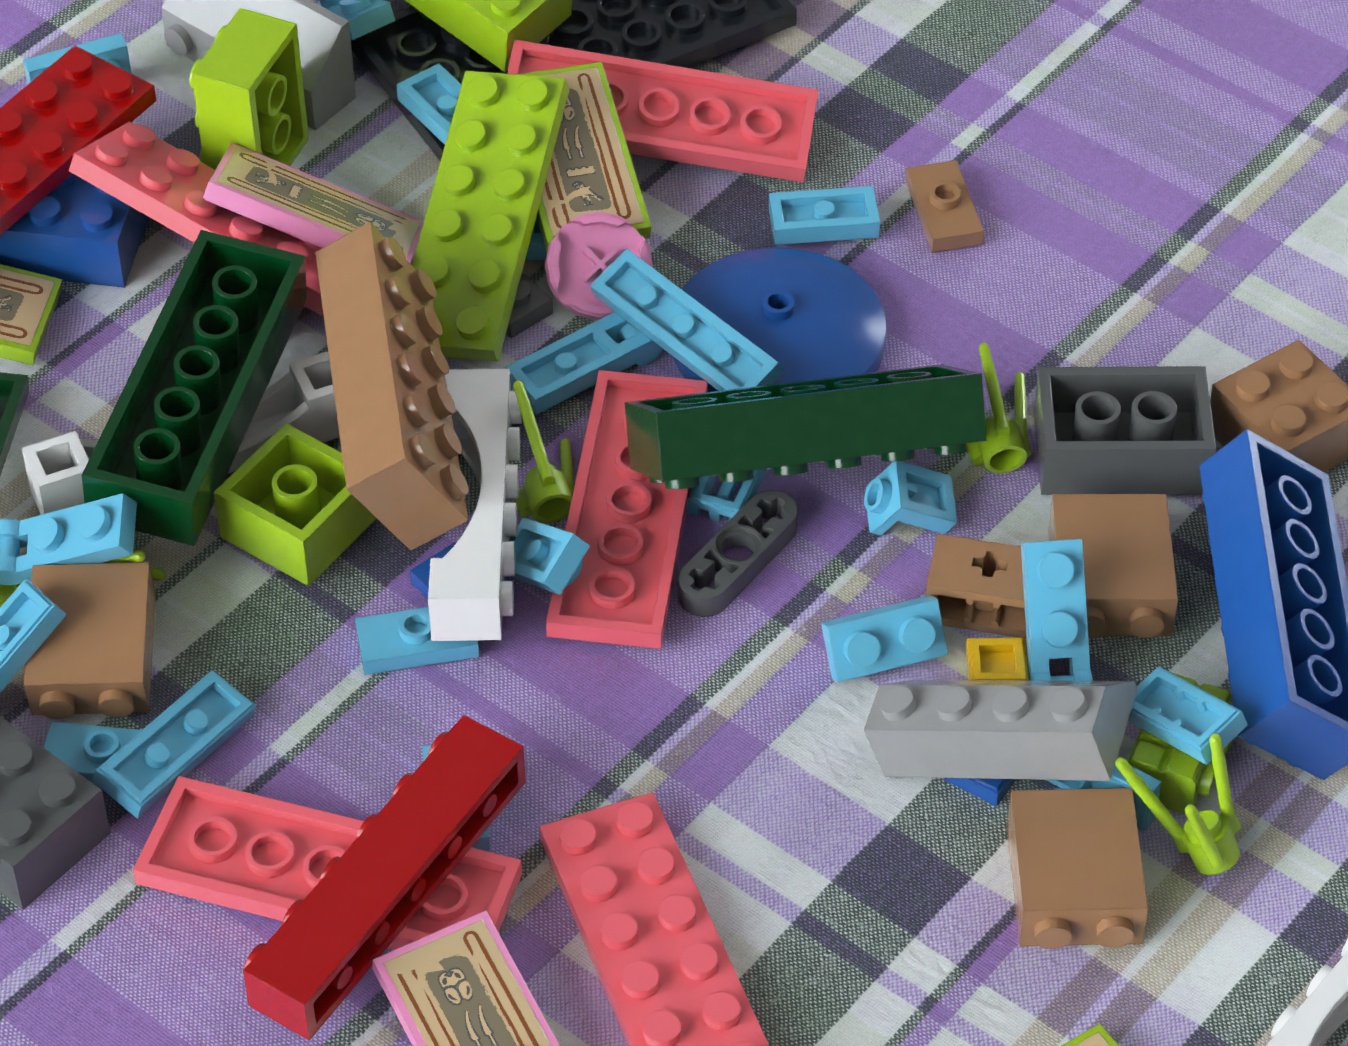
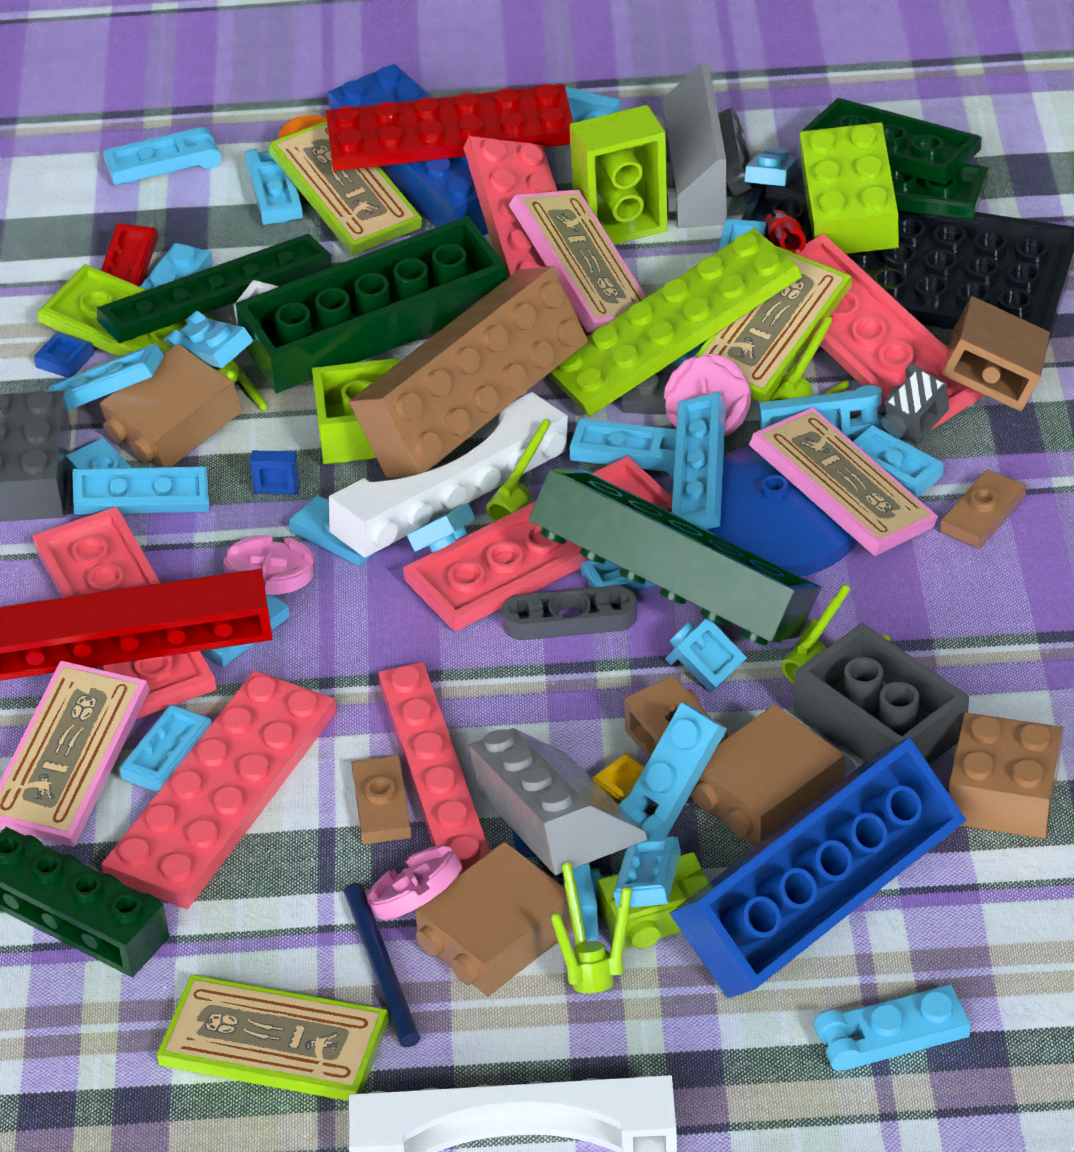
camera: 50 degrees right, 5 degrees down
(286, 626) = (275, 472): none -> blue tile
(404, 717) = (284, 565): none -> bright pink tile
(475, 57) = (785, 231): none -> red pin
(565, 964) = (164, 748): none -> medium azure plate
(664, 211) = (796, 386): none -> lime plant
(714, 218) = (833, 407): none -> medium azure plate
(797, 145) = (915, 405): none -> dark grey brick
(801, 54) = (996, 353): none -> medium nougat brick
(818, 849) = (381, 800): none -> medium nougat plate
(822, 259) = (843, 481): none -> tile
(831, 788) = (432, 762): none -> coral plate
(884, 638) = (573, 715): medium azure plate -> none
(979, 892) = (426, 877): none -> bright pink tile
(1027, 991) = (382, 965): none -> dark blue bar

